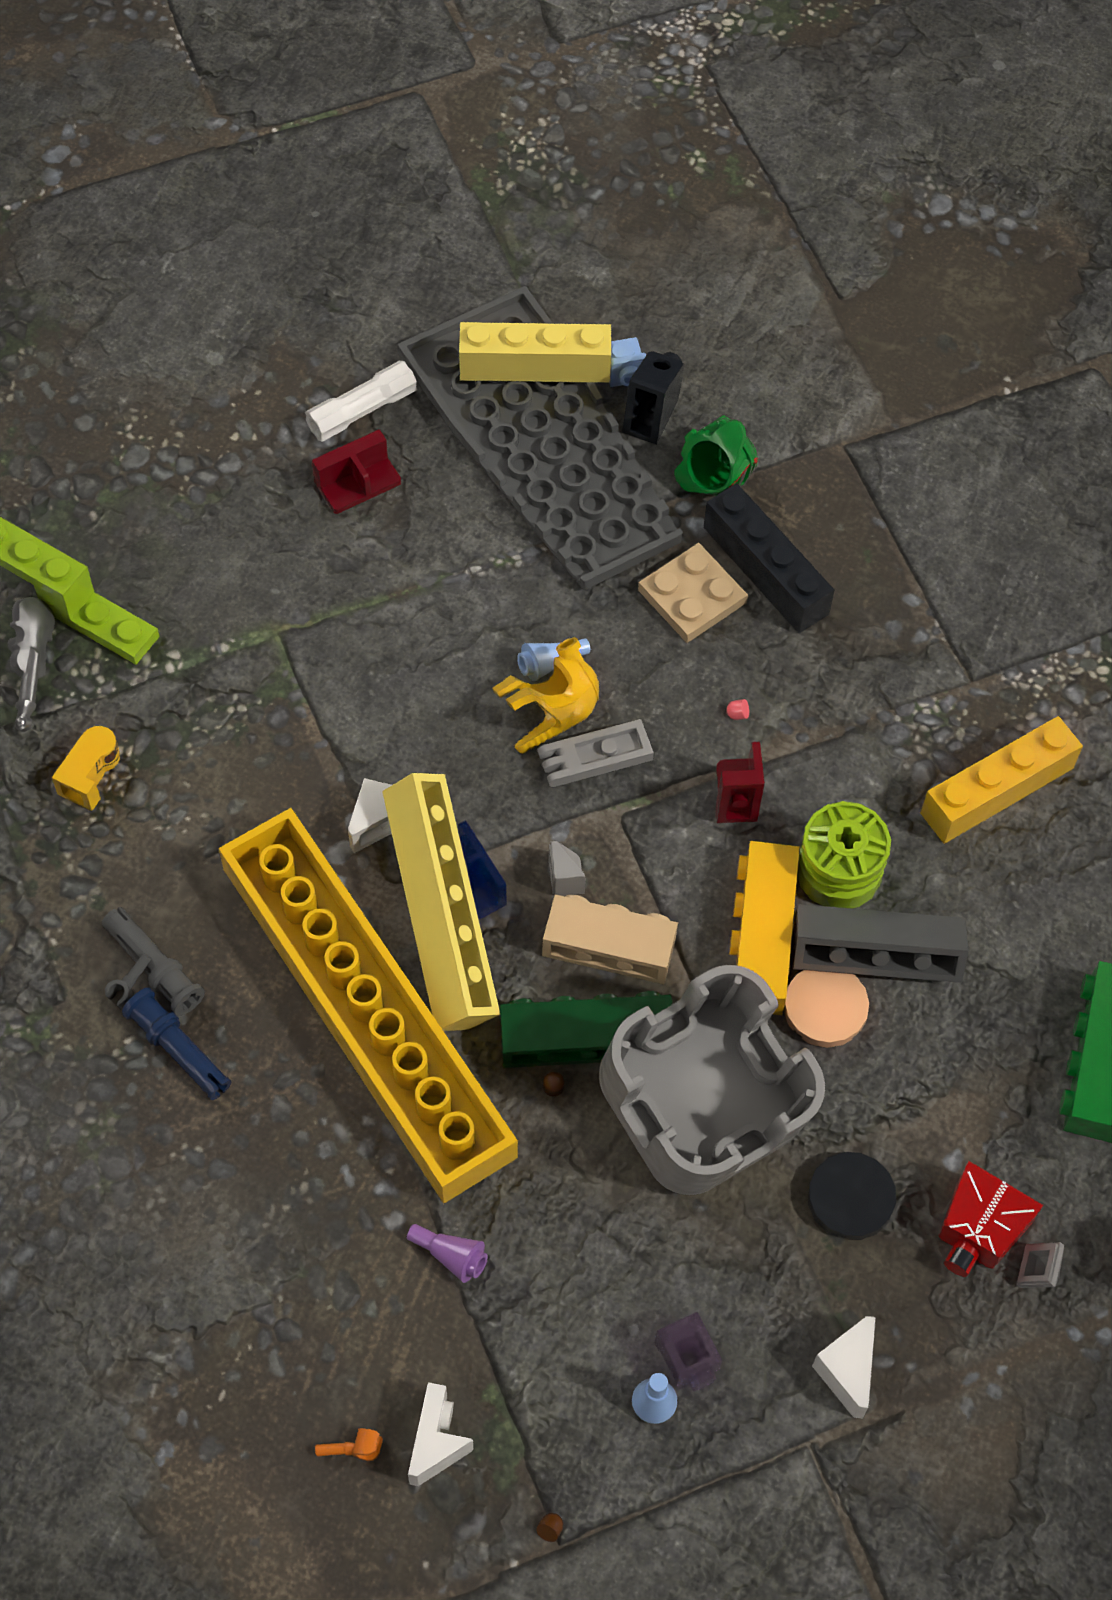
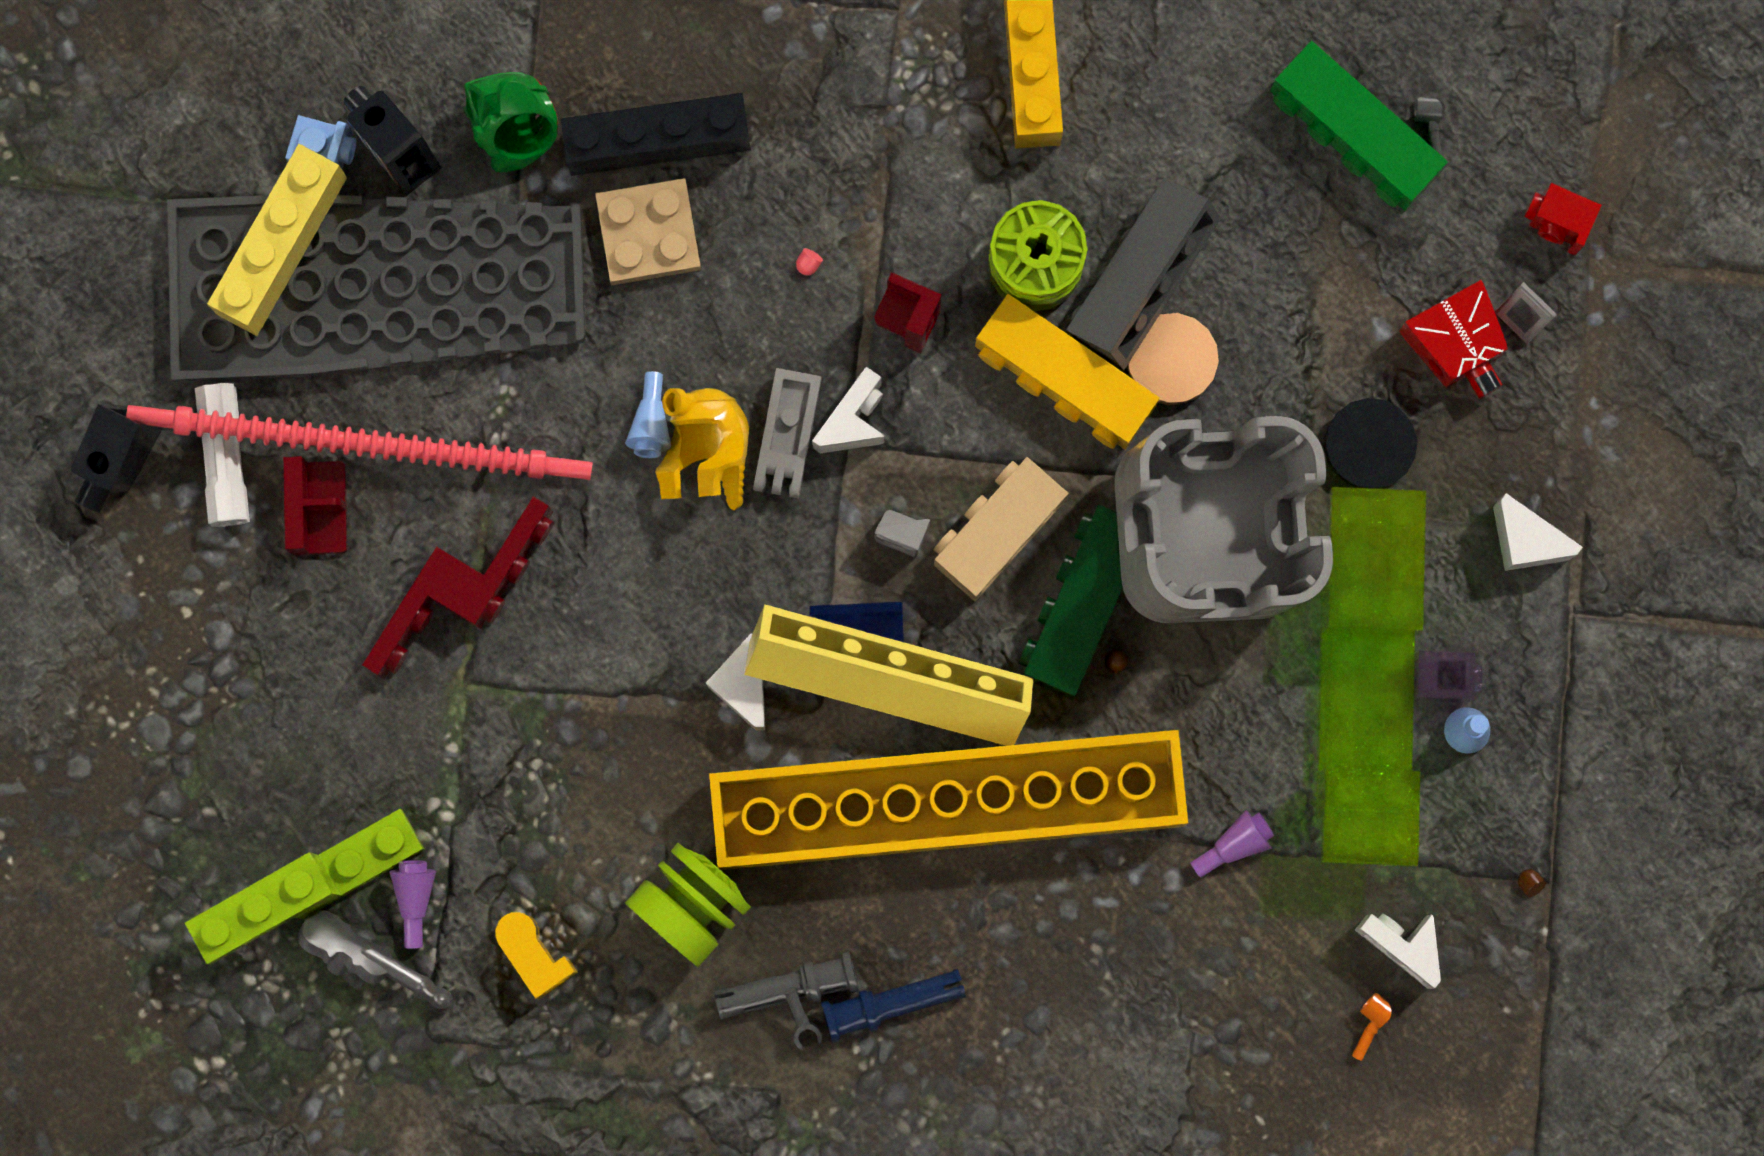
camera: 60 degrees left, 20 degrees up
(97, 665) = (412, 890): none -> medium lavender cone
(171, 845) = (688, 904): none -> lime wheel
(324, 330) = (114, 439): none -> black torso
(346, 589) = (459, 589): none -> dark red bracket
(470, 596) = (184, 421): none -> coral hose
(616, 1308) = (1367, 678): none -> clear neon green bracket
(627, 785) = (844, 427): none -> white slope

